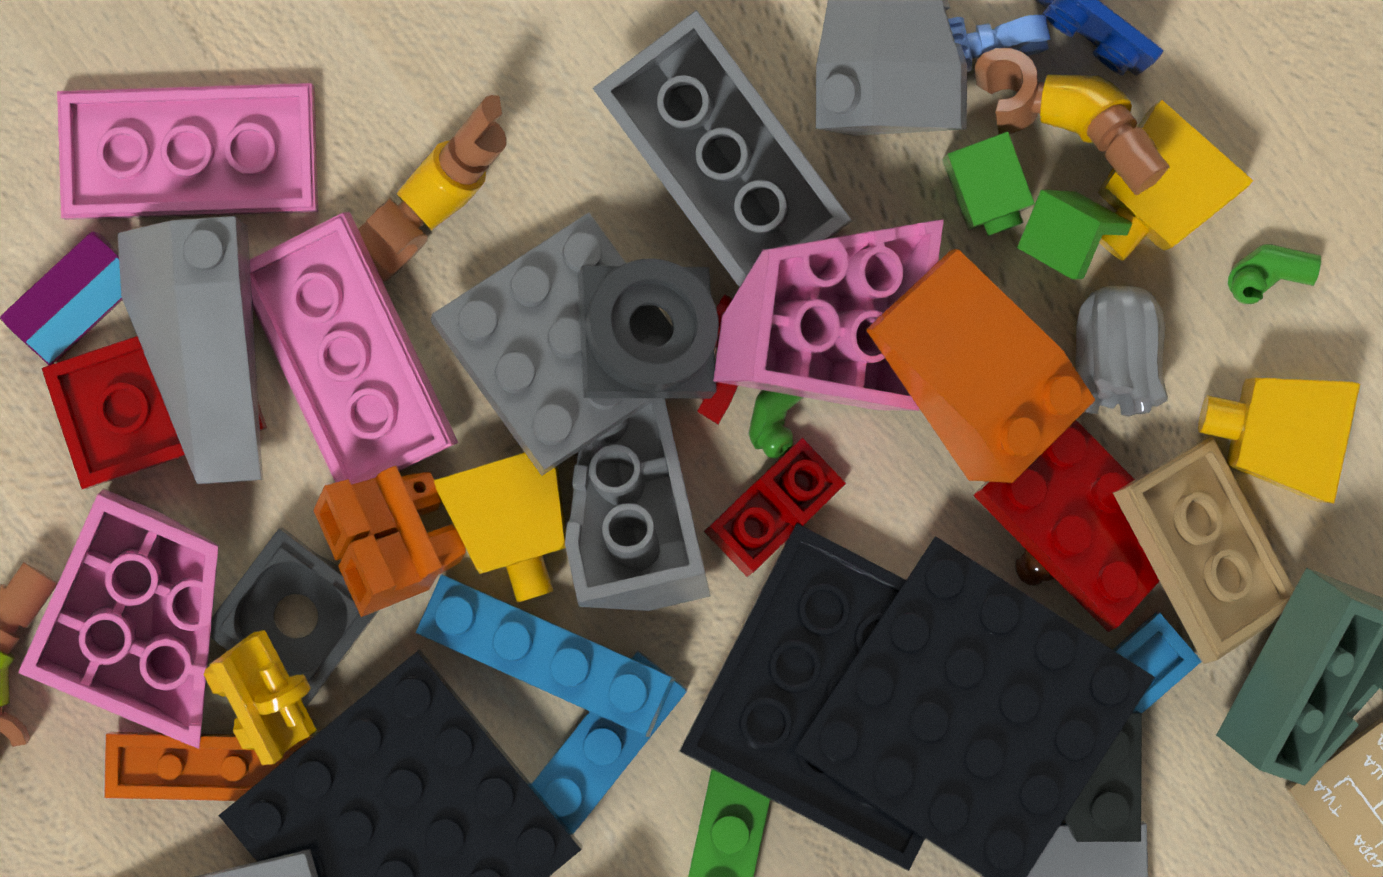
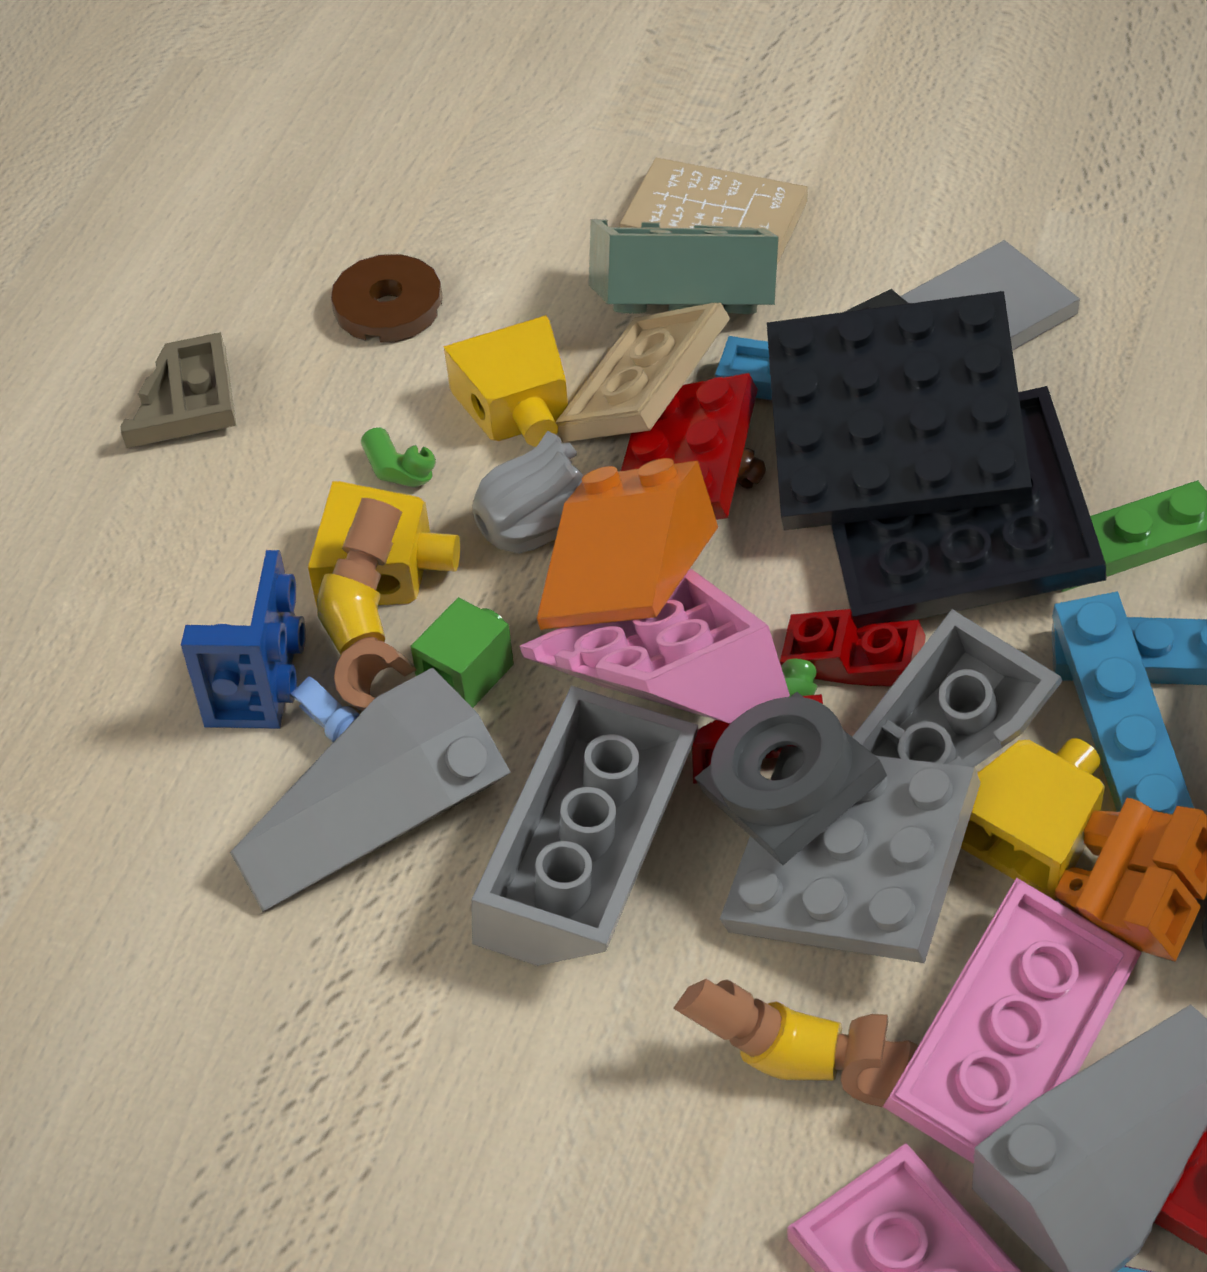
camera: 120 degrees left, 40 degrees down
(1067, 231) = (464, 562): bright green panel -> none

